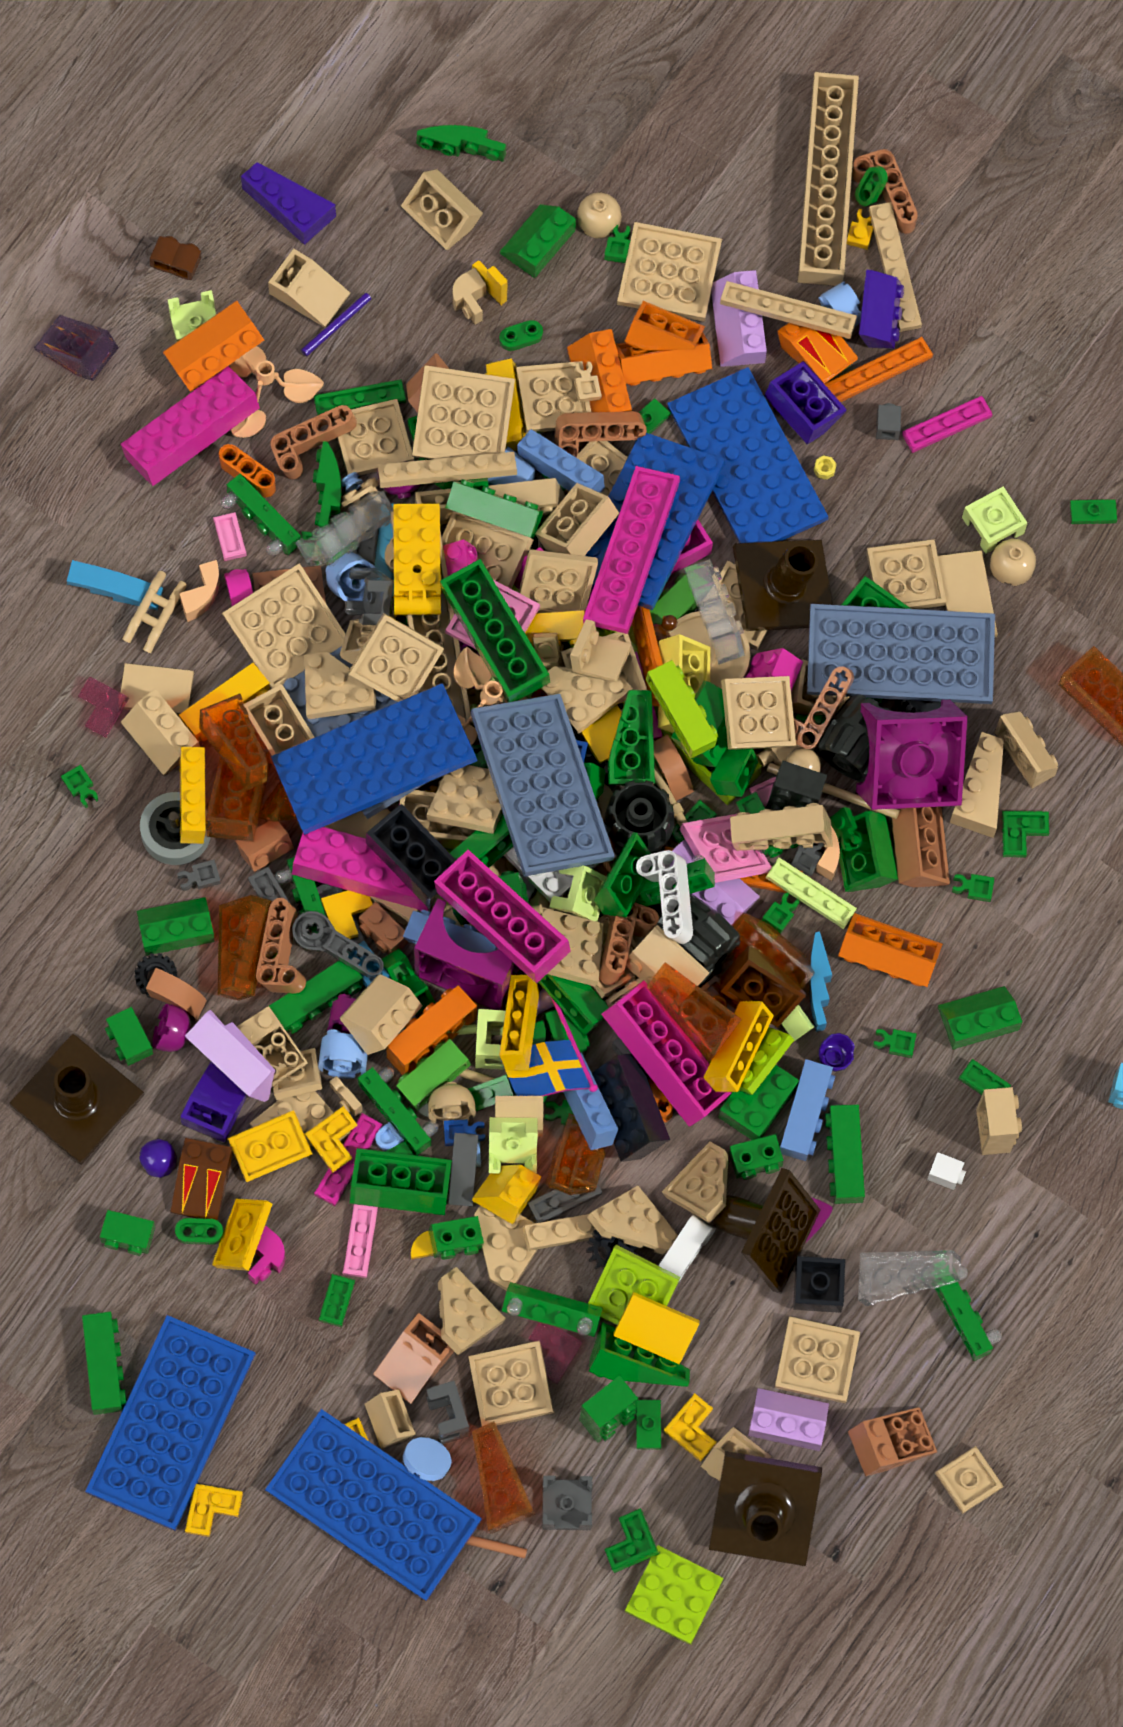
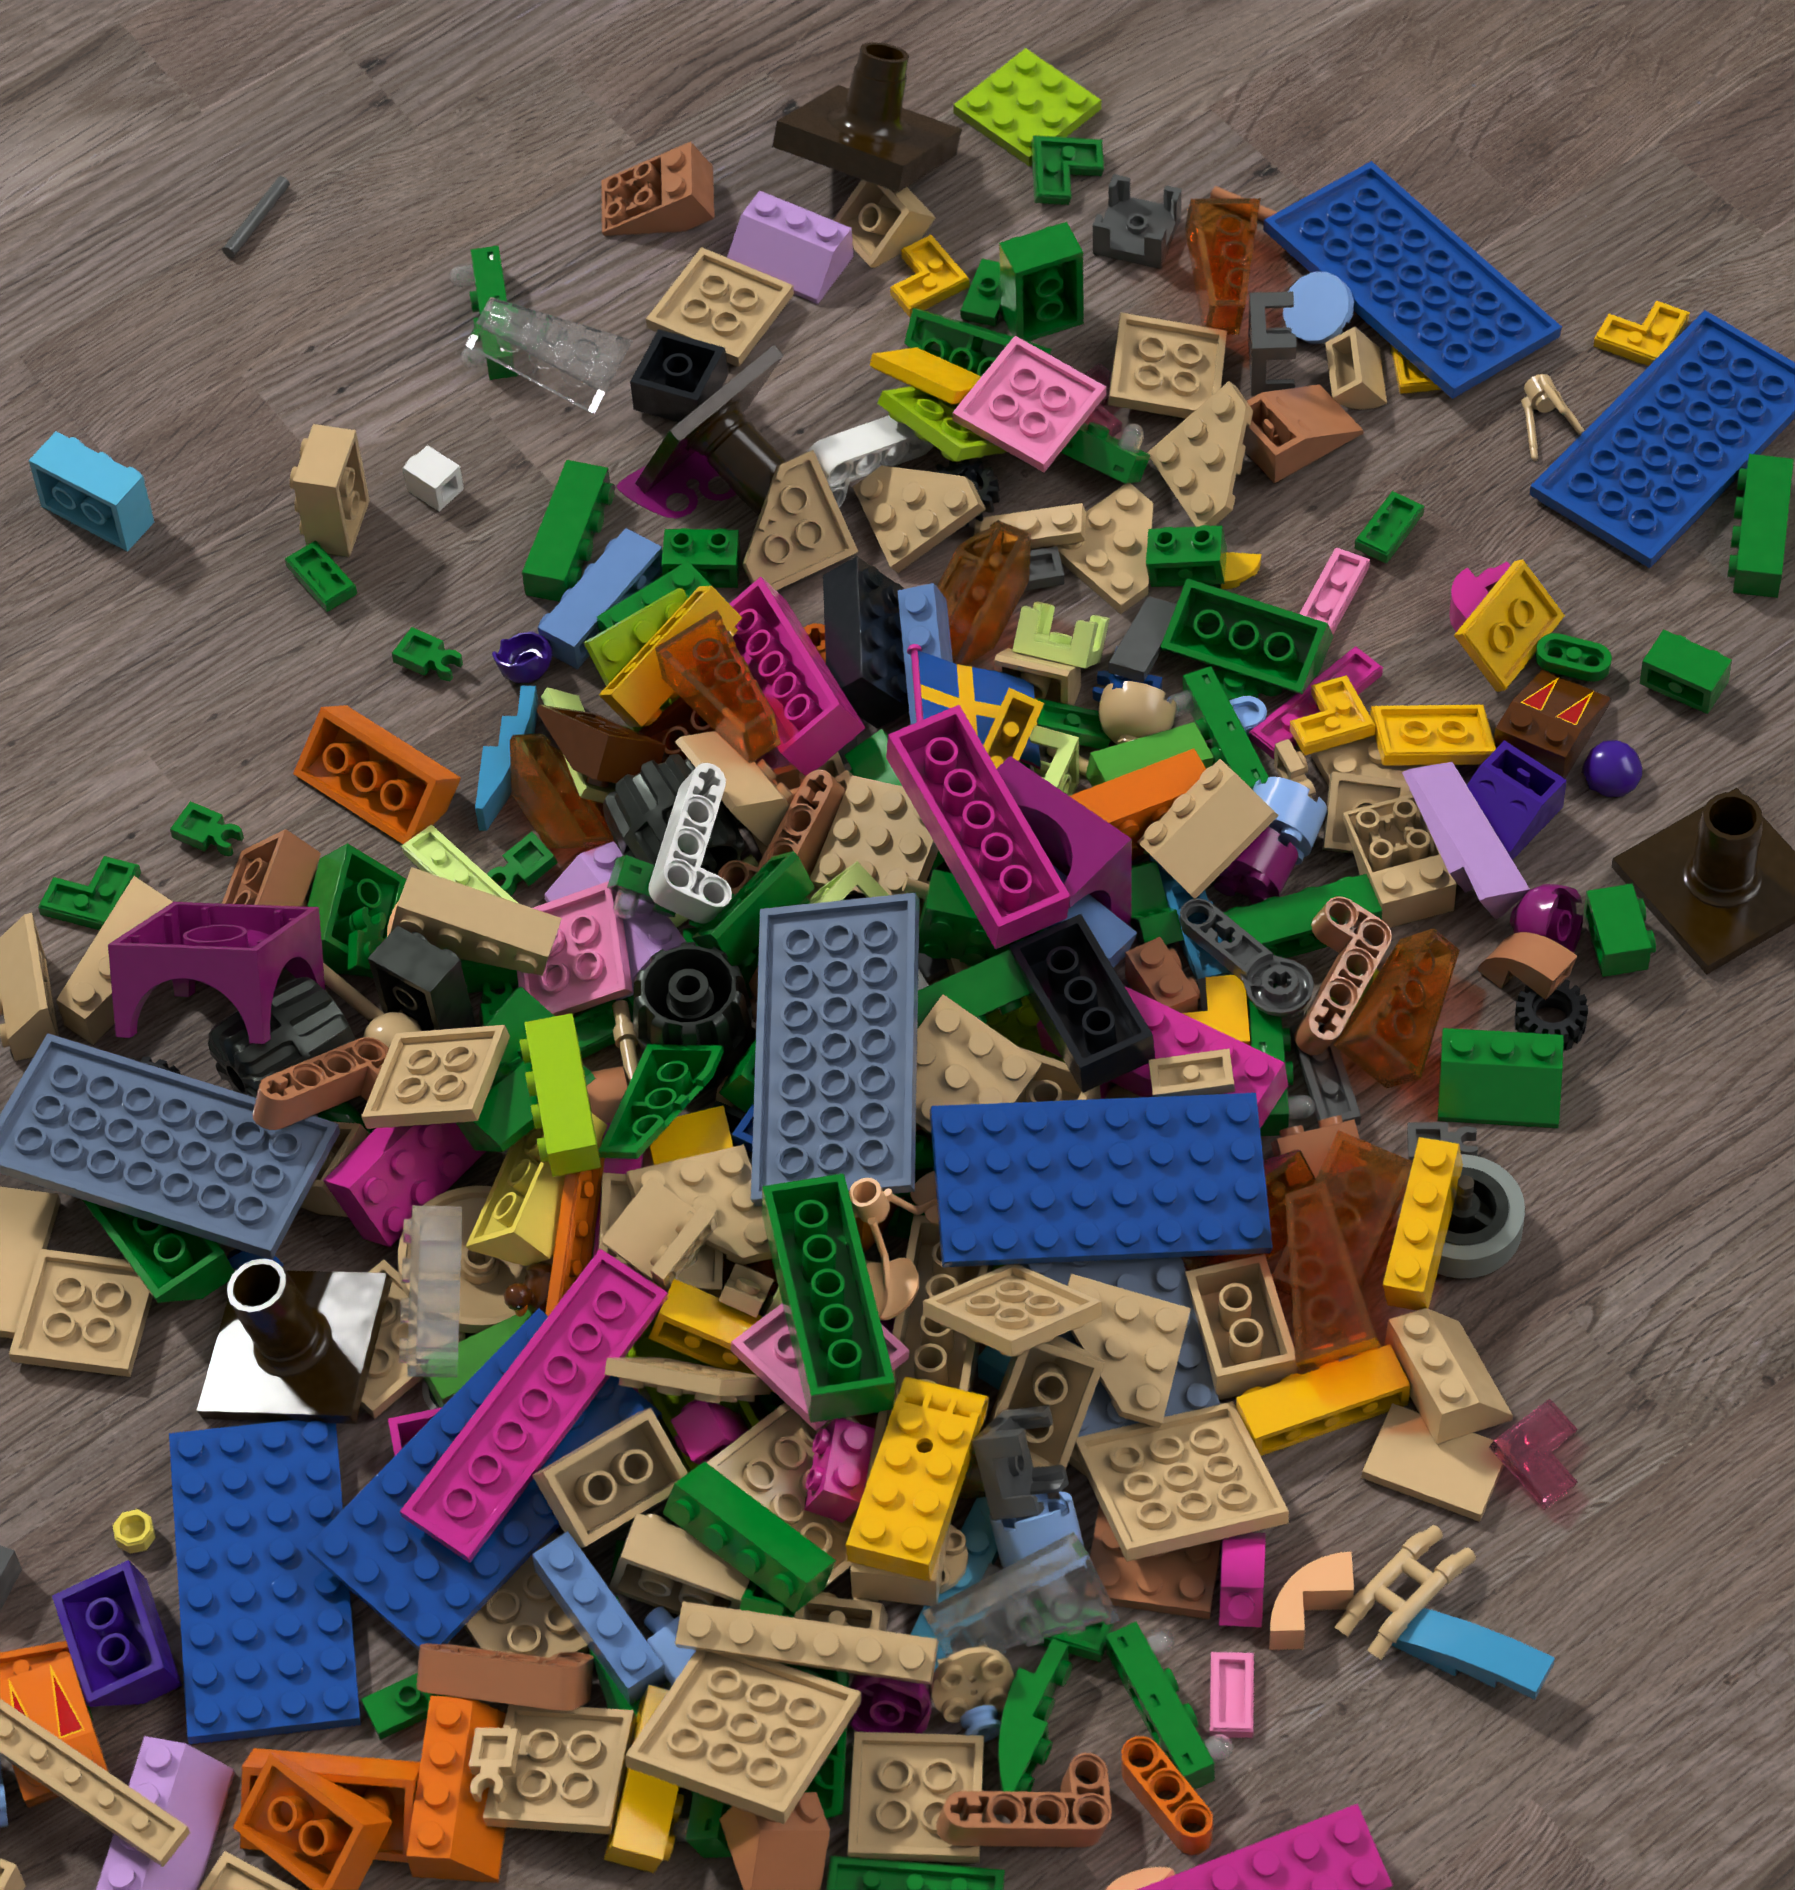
camera: 155 degrees left, 15 degrees down
(79, 783) = (1609, 1337): green plate -> none
(265, 1432) = (1544, 398): none -> tan plant
(341, 833) = (1192, 1074): none -> tan plate
(508, 1191) = (1088, 584): yellow slope -> none
(584, 1303) = (1029, 403): none -> bright pink plate
(969, 1479) = (573, 135): tan plate -> none
(980, 1017) = (285, 655): green slope -> none

